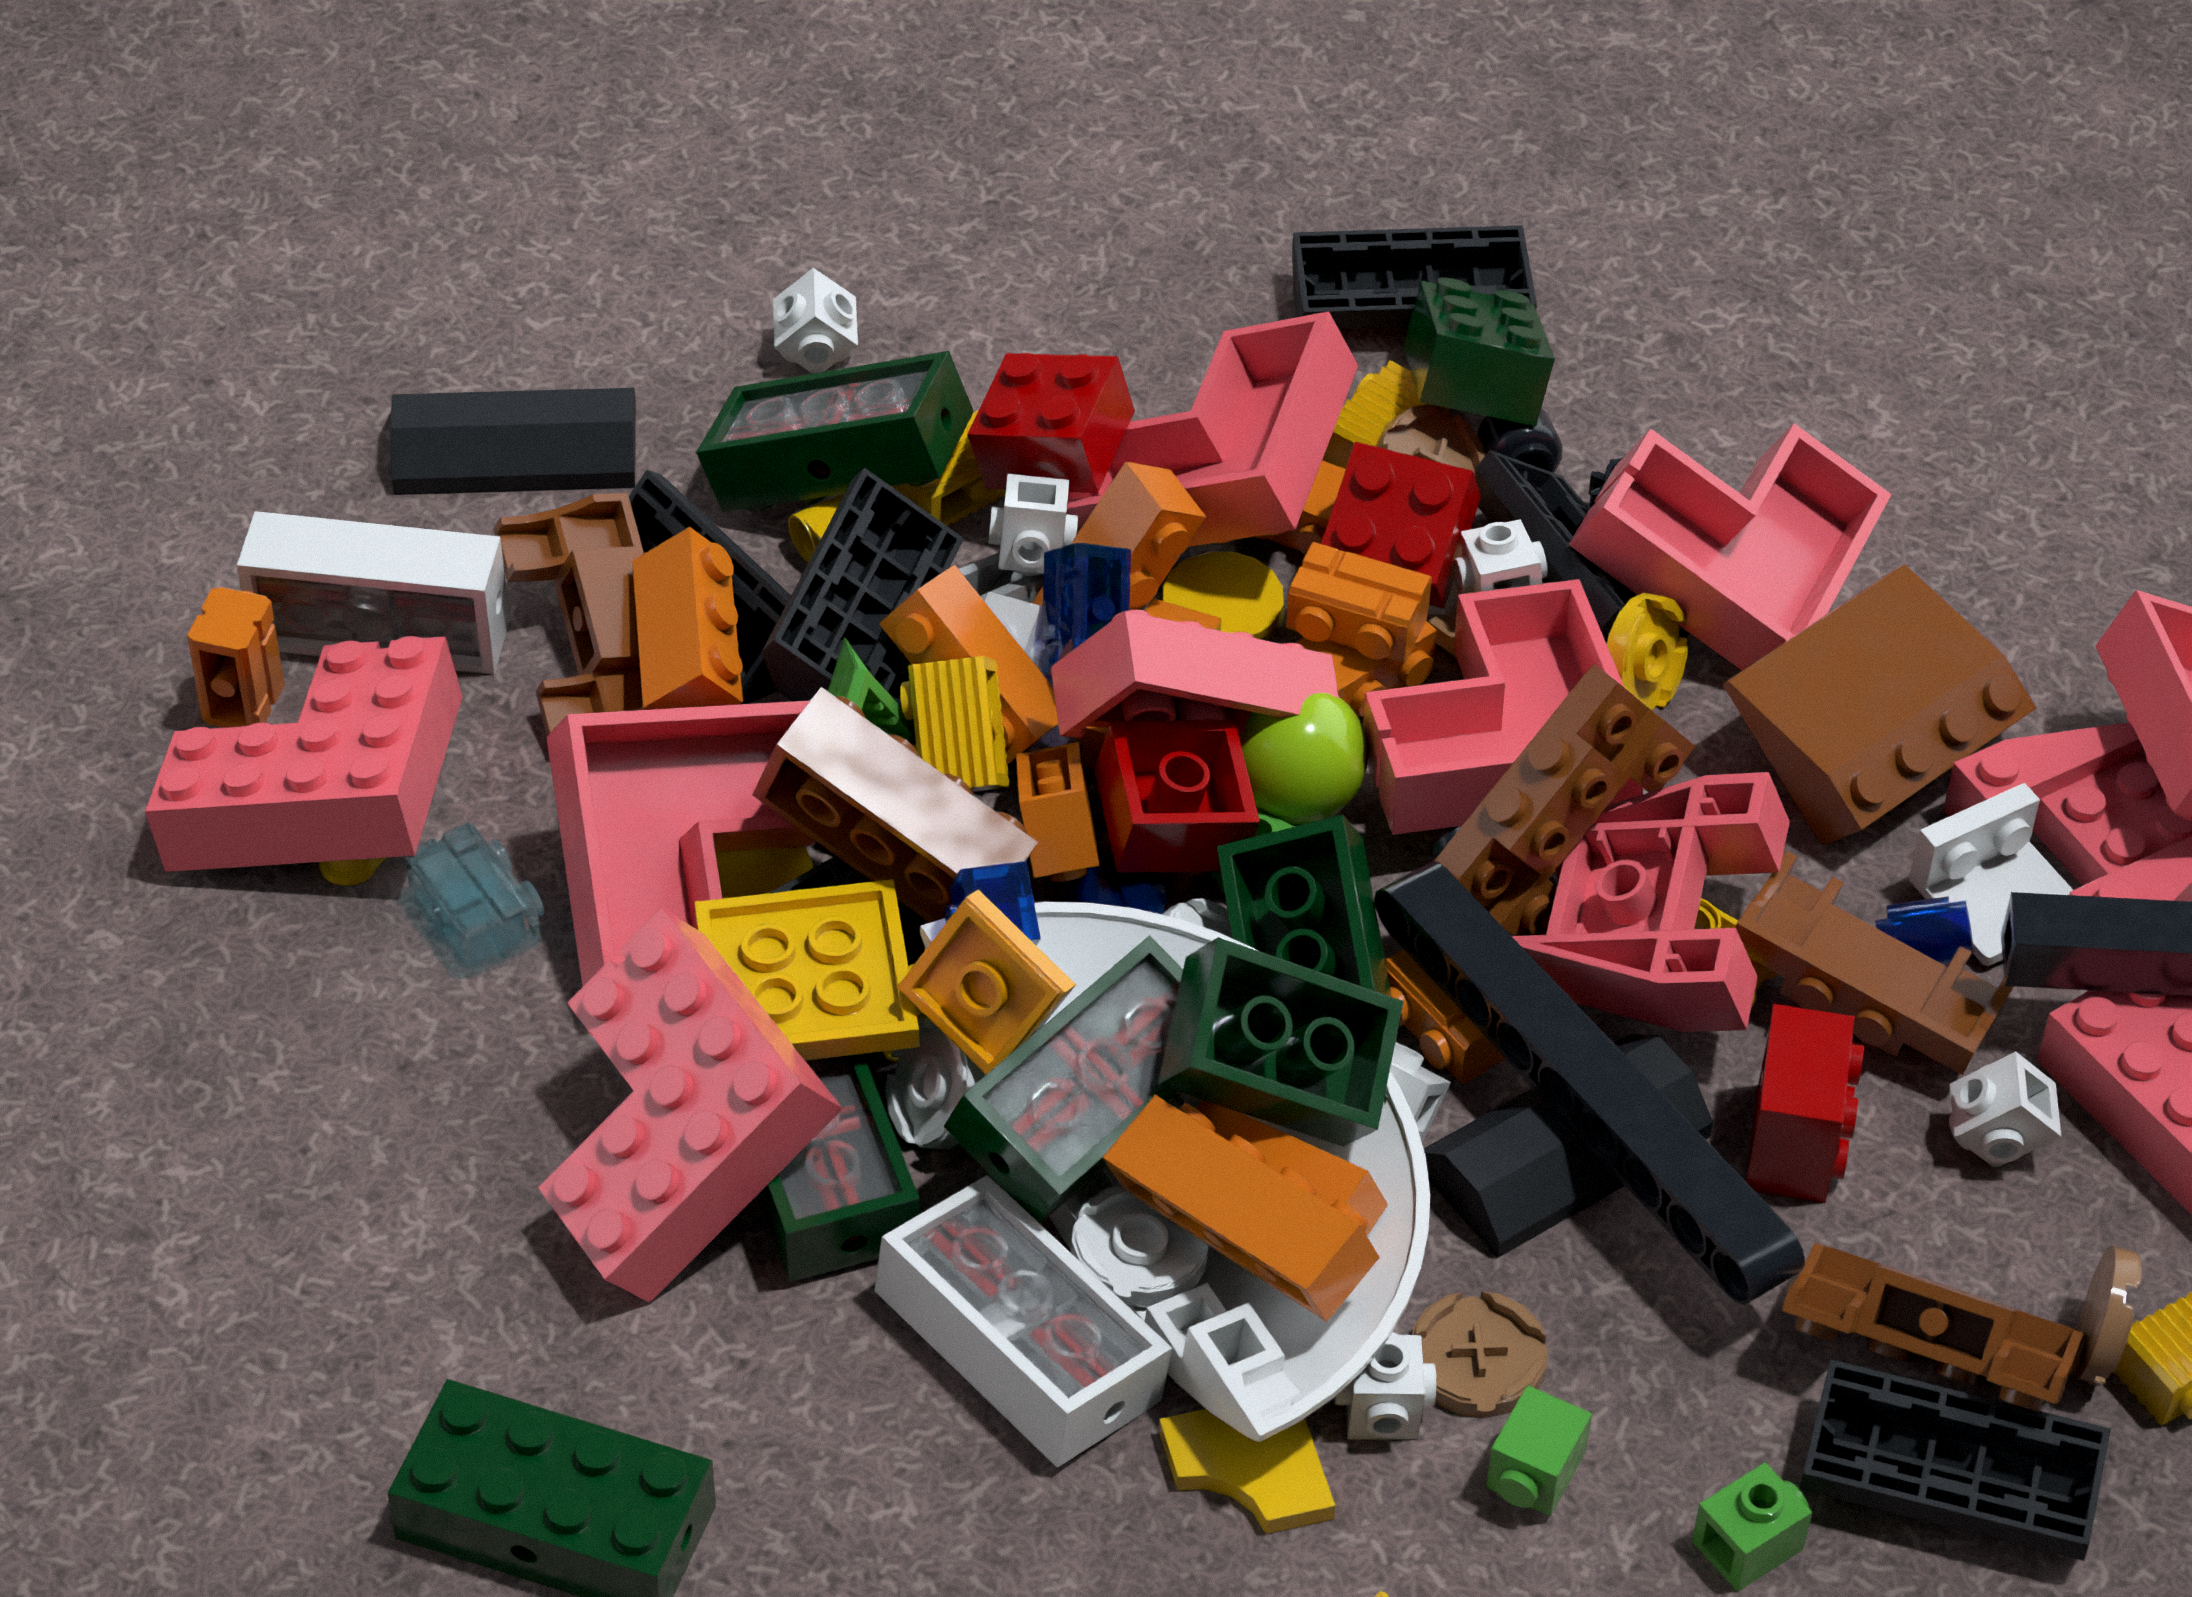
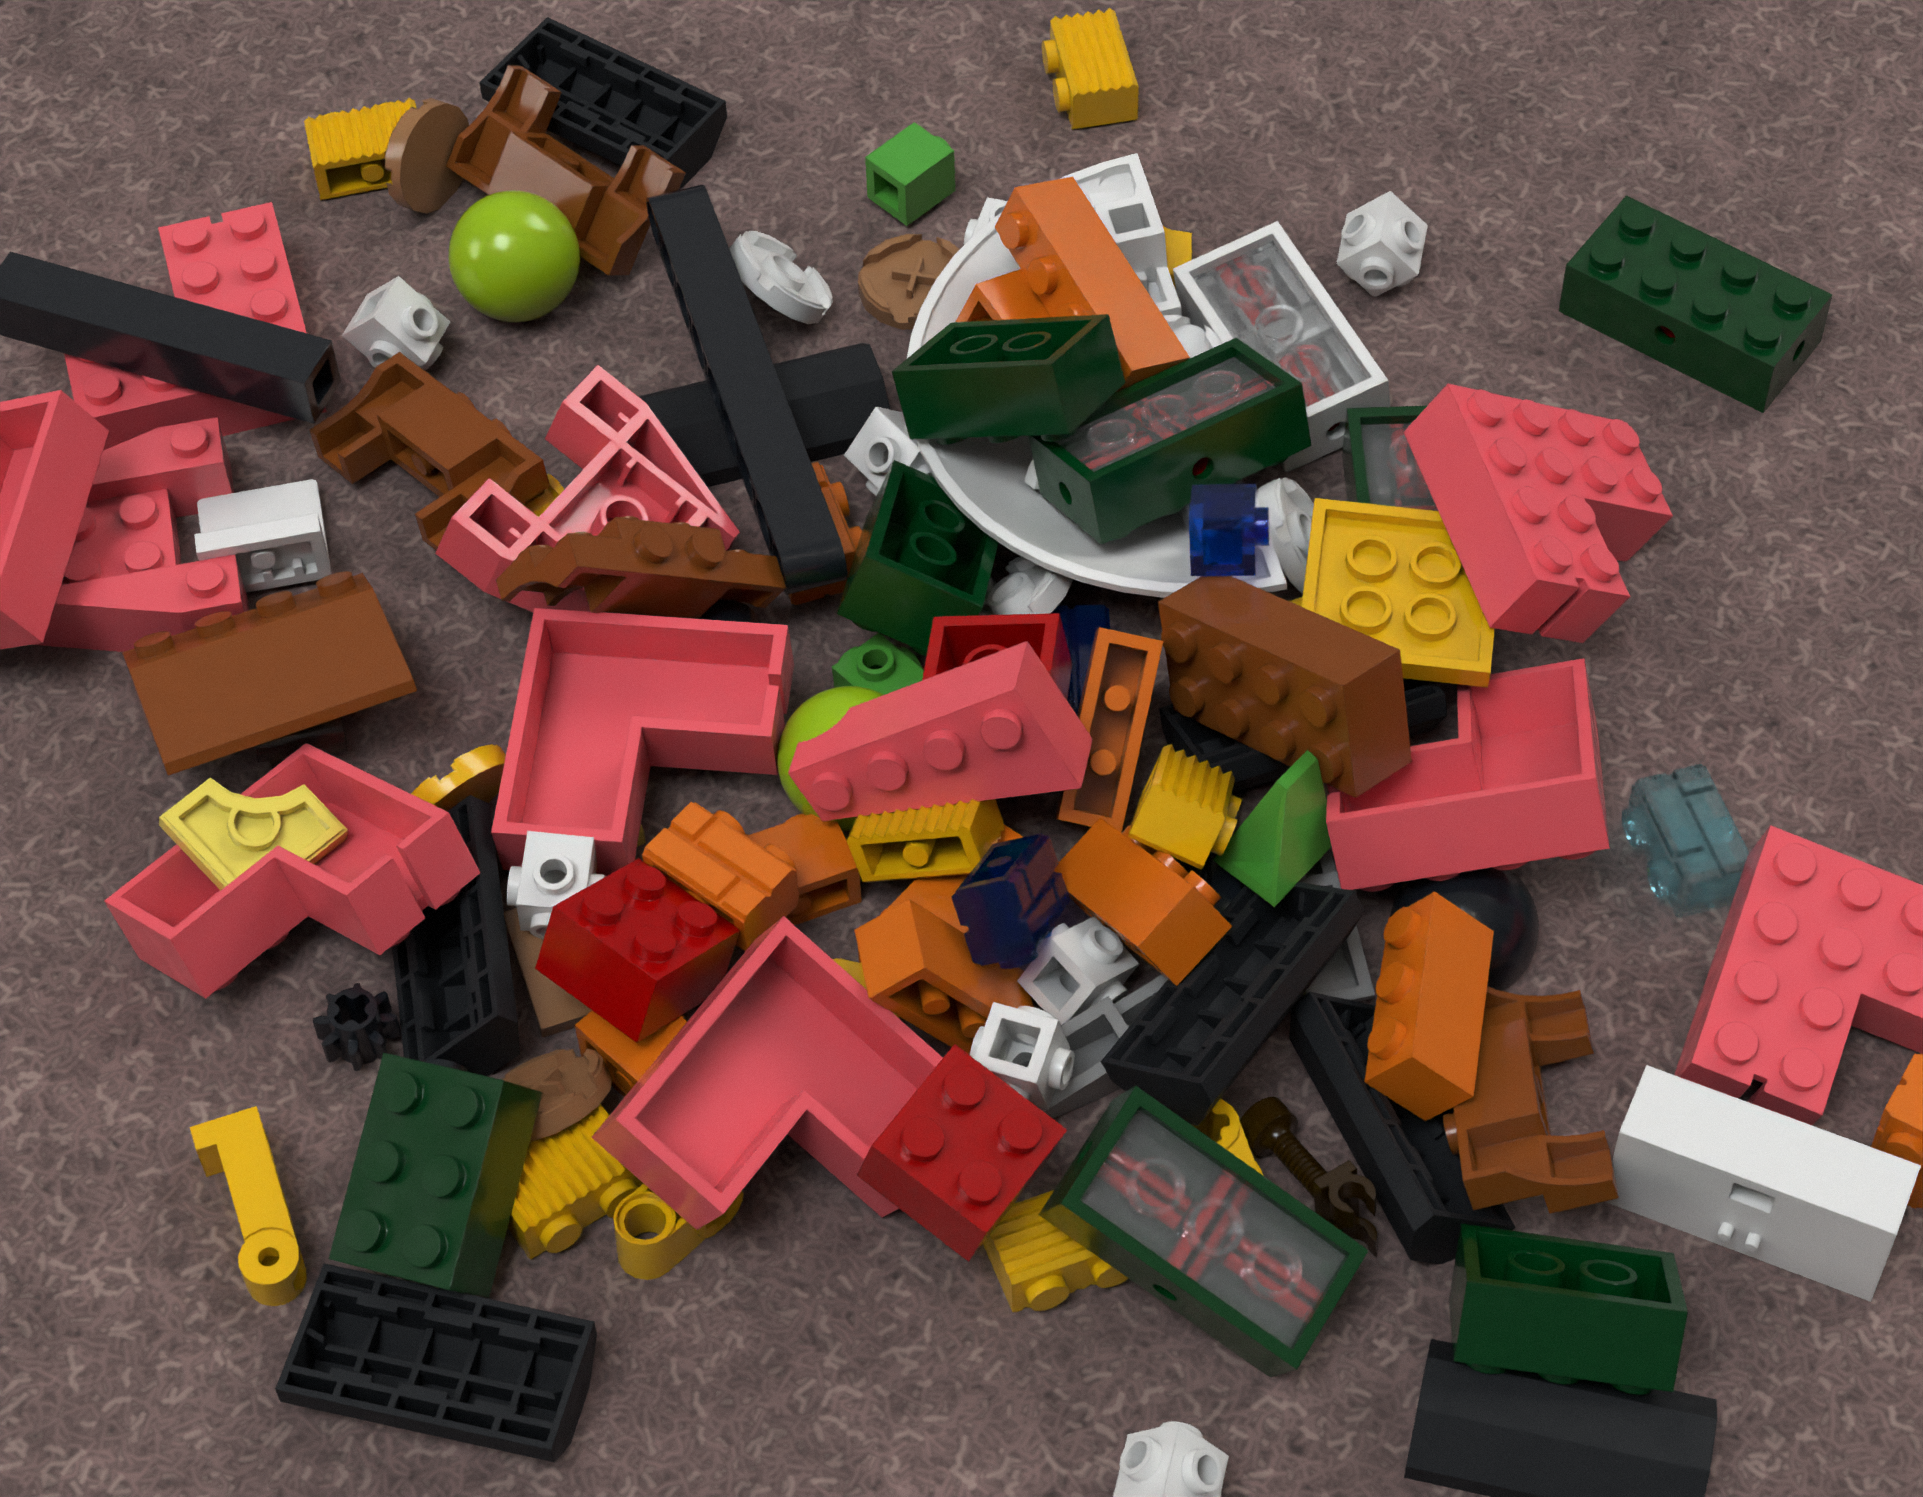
camera: 160 degrees left, 5 degrees up
(520, 457) = (1566, 1309): none -> dark green brick
(735, 516) = (1271, 1130): none -> dark brown bar
(942, 1485) = (1382, 244): none -> white brick
(985, 983) = (1254, 466): light orange tile -> none
(1621, 1266) = (771, 275): none -> white tile
(1629, 367) = (271, 1252): none -> yellow leg
(1752, 1526) = (773, 106): bright green brick -> none
(1800, 556) = (233, 831): none -> light yellow tile
(1804, 1103) = (559, 340): red brick -> none
(1923, 1197) = (514, 256): none -> lime piece
(1930, 926) = (358, 497): clear blue brick -> none

